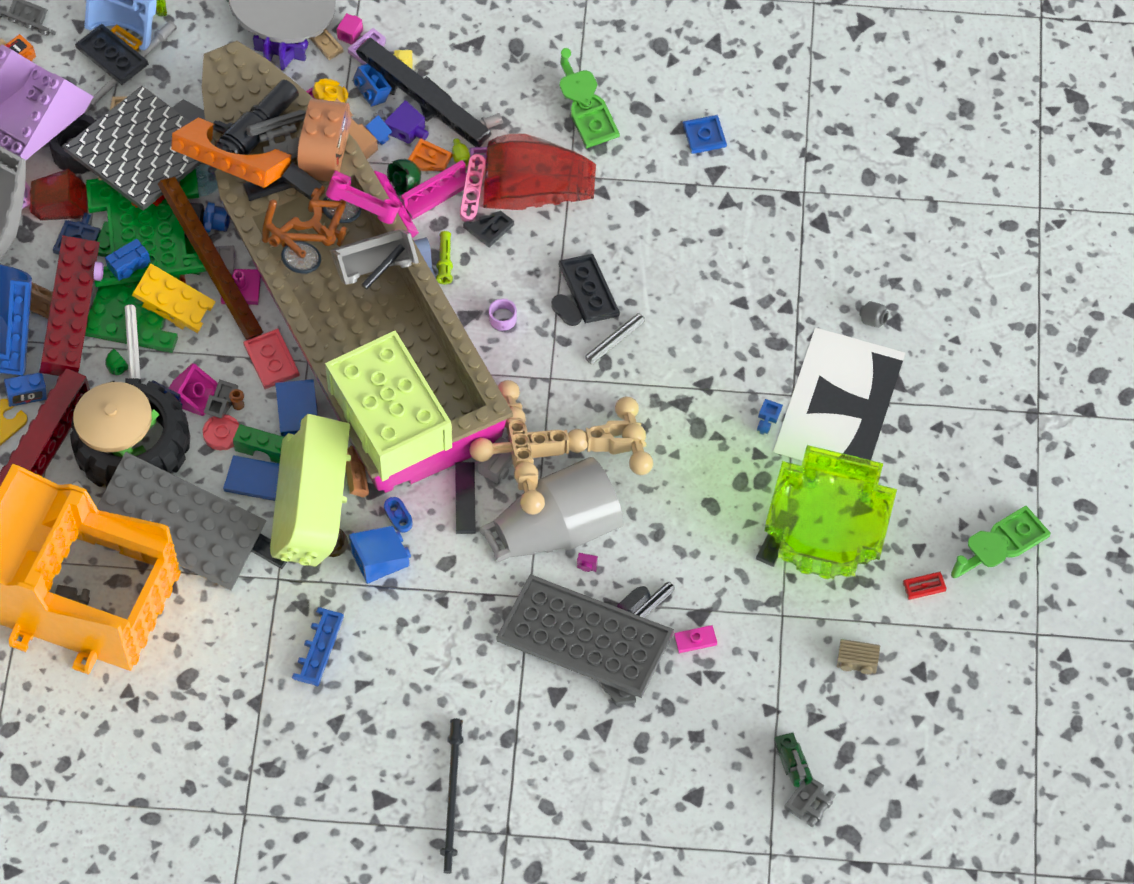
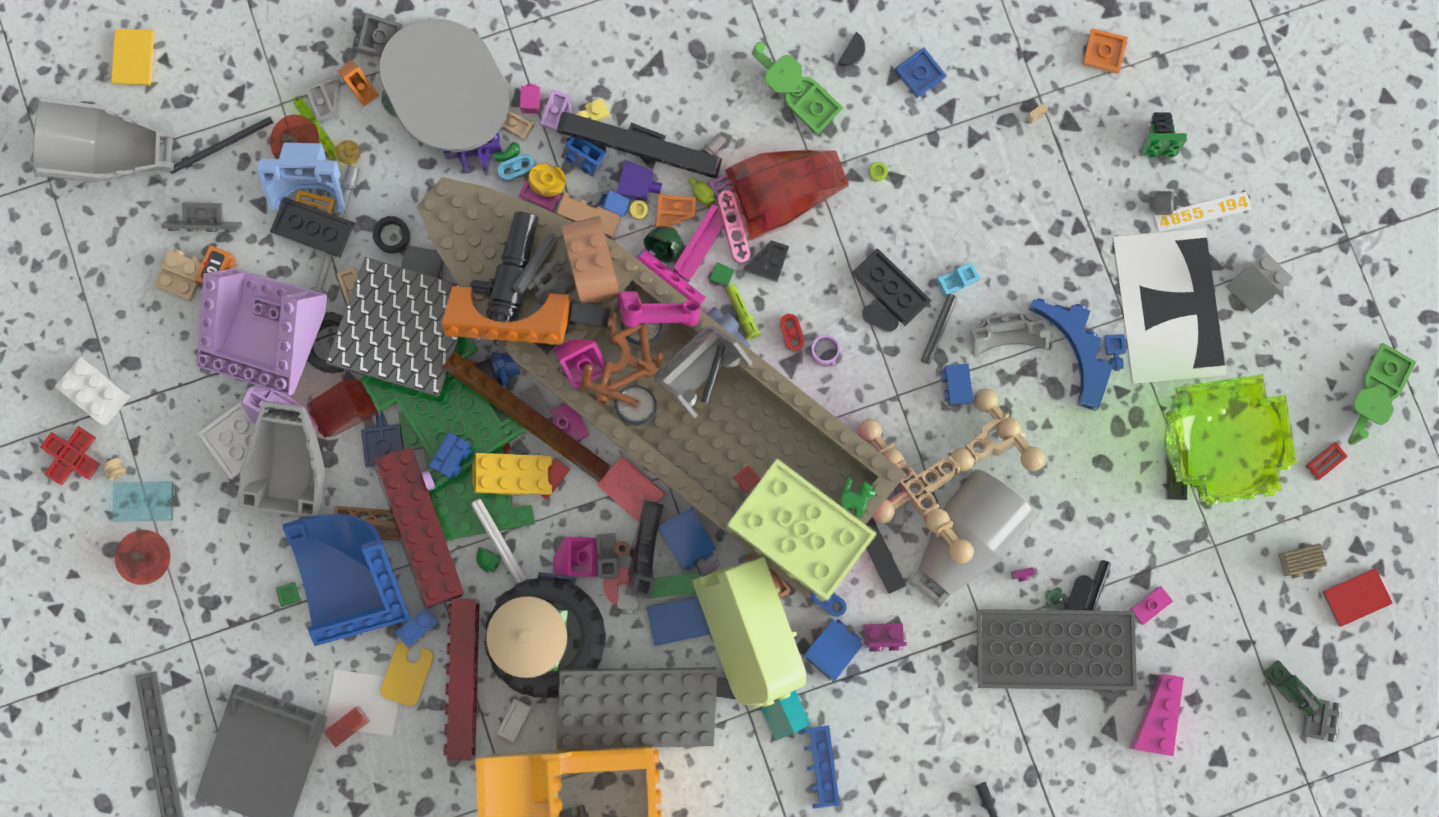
camera: 30 degrees left, 20 degrees up
(174, 11) = (347, 152): none -> clear yellow brick
(175, 74) = (387, 221): none -> black tyre
(211, 321) = (556, 474): none -> red tile
(219, 433) = (627, 603): none -> light grey brick
(239, 408) = (642, 552): none -> black arch
(283, 212) = (575, 355): none -> dark pink slope
(309, 64) = (511, 152): none -> green arm
(309, 74) = (515, 167): none -> medium azure plate
(309, 590) = (785, 716): none -> teal slope
(397, 147) = (638, 210): none -> light yellow tile
(431, 564) = (884, 635): none -> magenta bracket
(443, 222) = (722, 275): none -> green tile
(455, 411) = (856, 501): none -> green animal
(480, 291) = (791, 333): none -> red plate
(607, 385) = (957, 384): none -> blue brick
(609, 597) = (1055, 599): none -> clear green plant
(625, 196) = (878, 171): none -> lime tile
(651, 735) = (1160, 717): none -> dark pink wedge
(653, 96) = (853, 52): none -> black tile
(653, 307) = (958, 279): none -> medium azure slope
(674, 363) = (1009, 330): none -> light grey windscreen
(739, 379) = (1071, 323): none -> blue arch
(792, 201) = (1036, 113): none -> tan tile
(881, 176) = (1105, 51): none -> orange plate
(896, 261) = (1162, 137): none -> green plate
(897, 711) = (1357, 597): none -> red tile
(910, 339) = (1204, 211): none -> white sticker
(929, 407) = (1259, 282): none -> light grey slope

